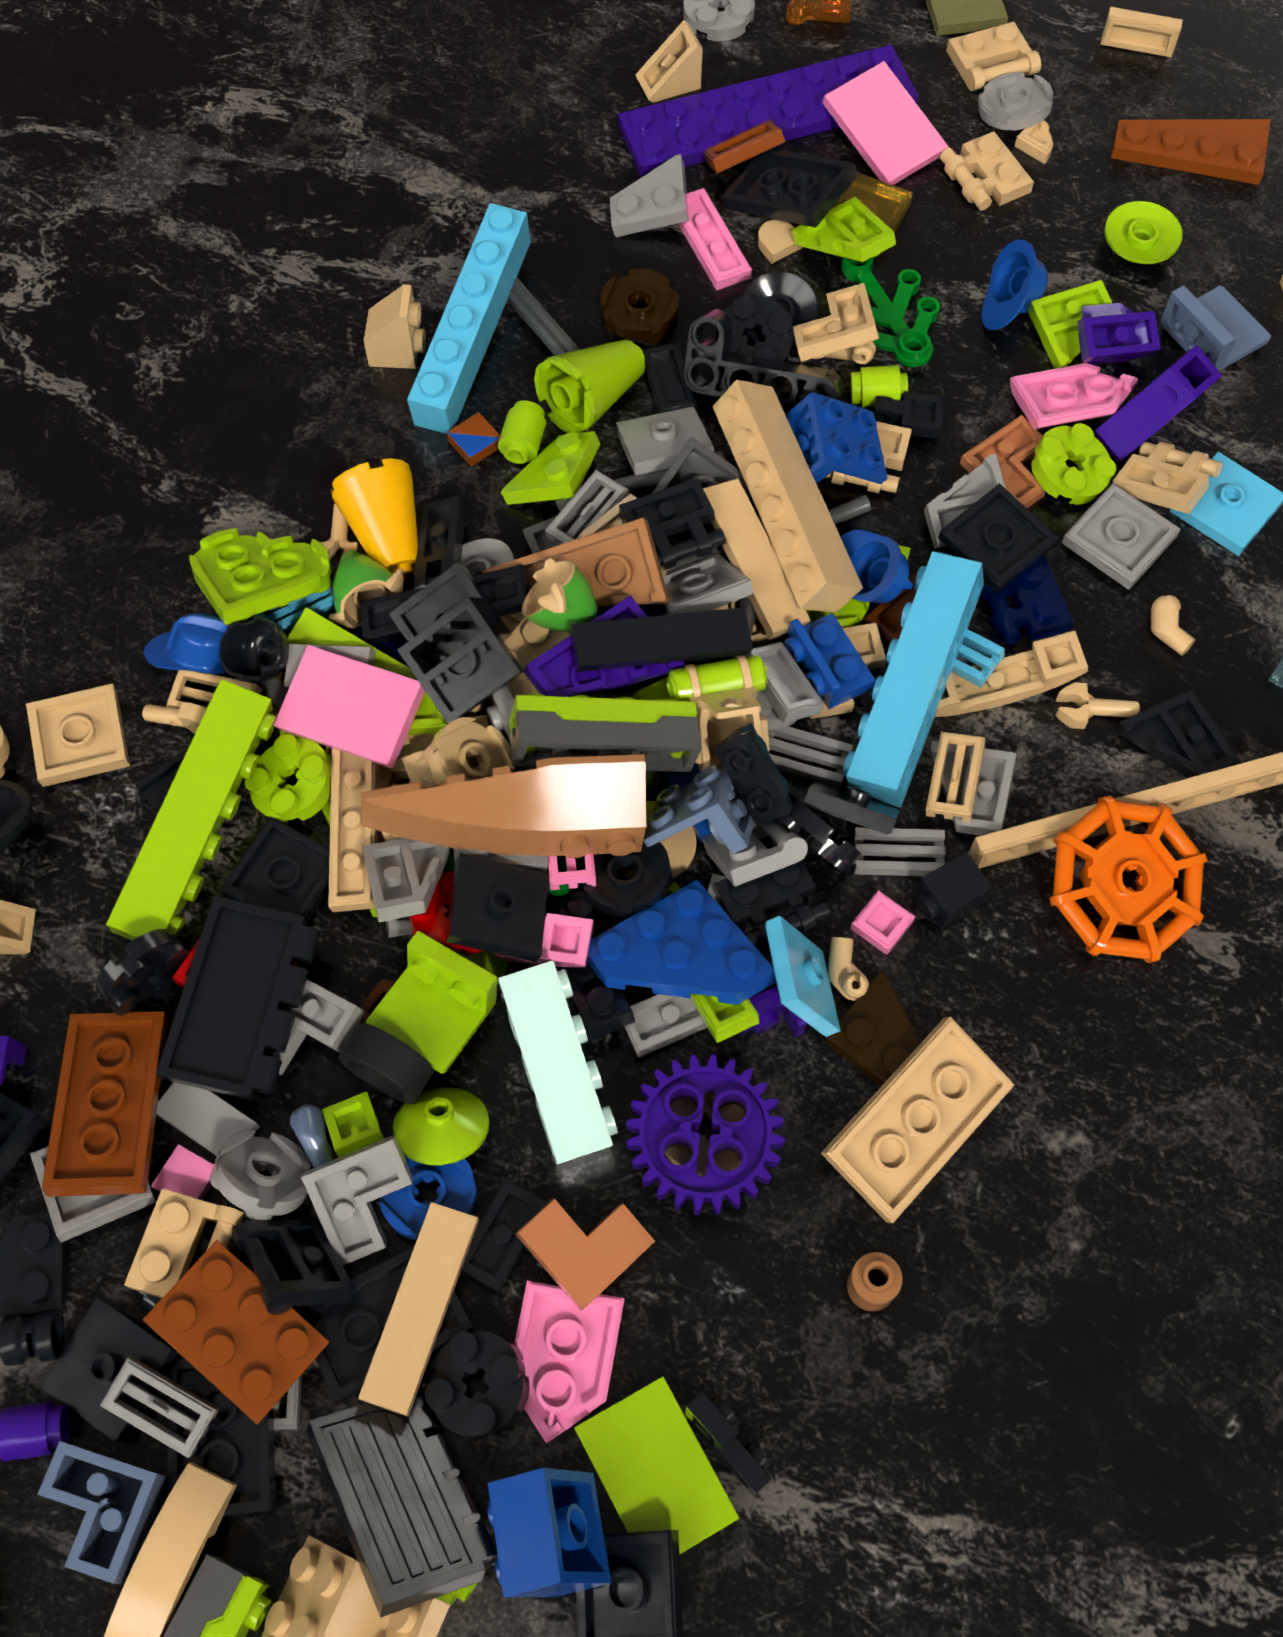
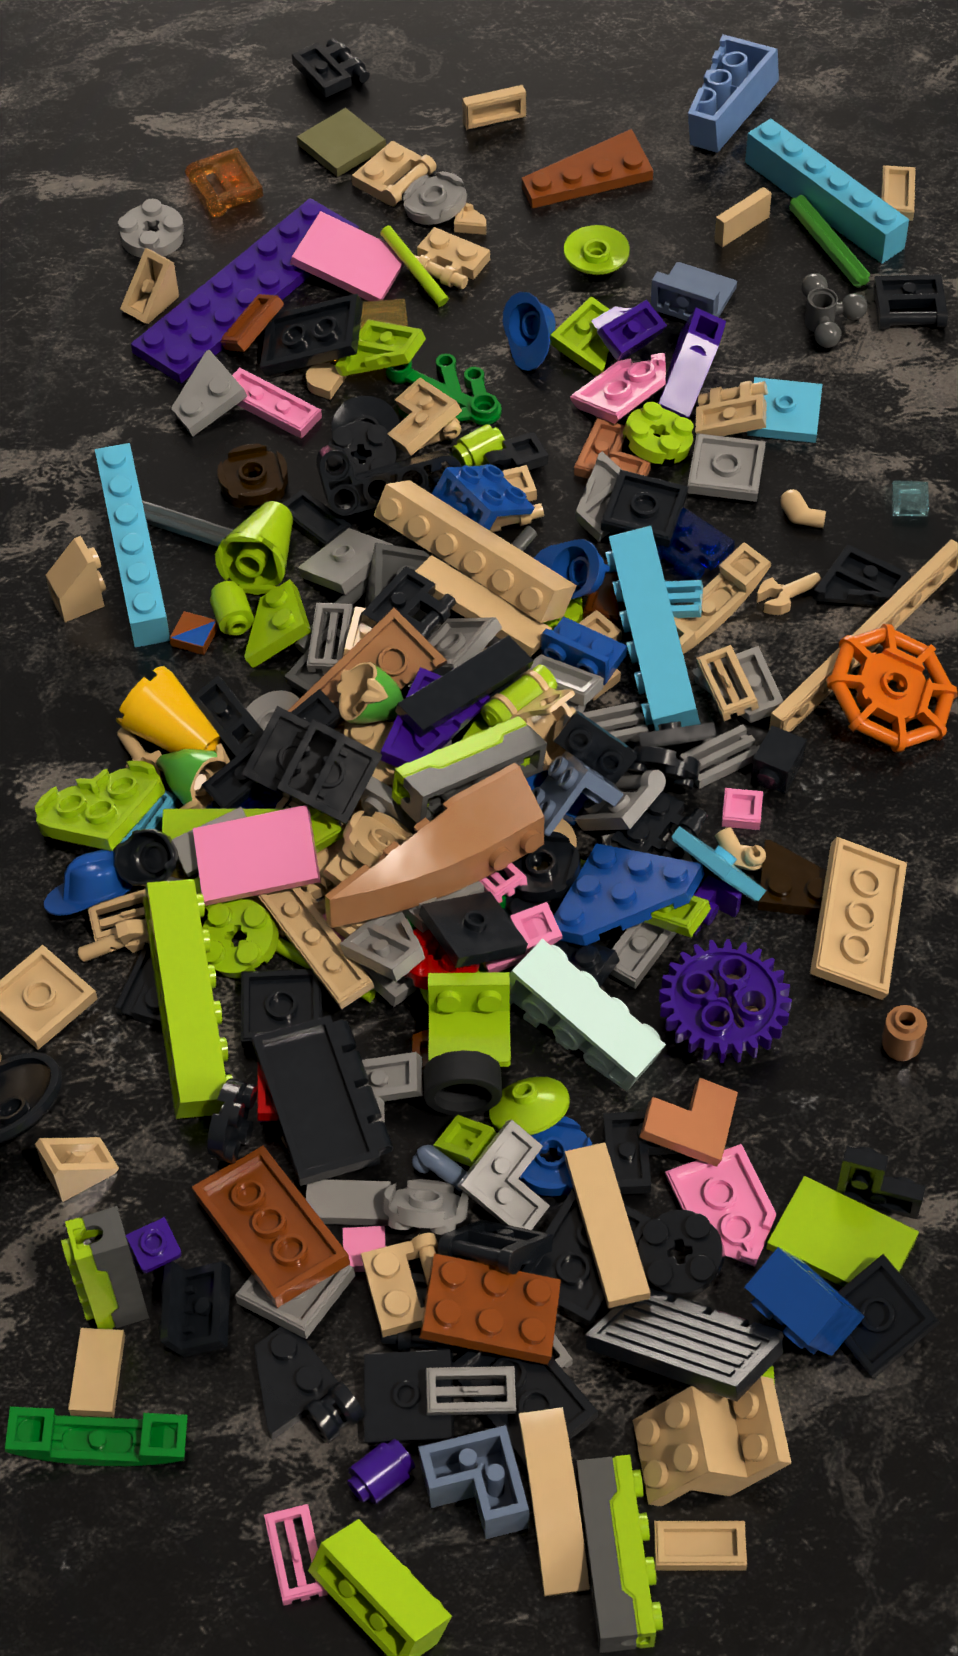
camera: 30 degrees left, 10 degrees down
(944, 162) = (414, 266): none -> lime bar

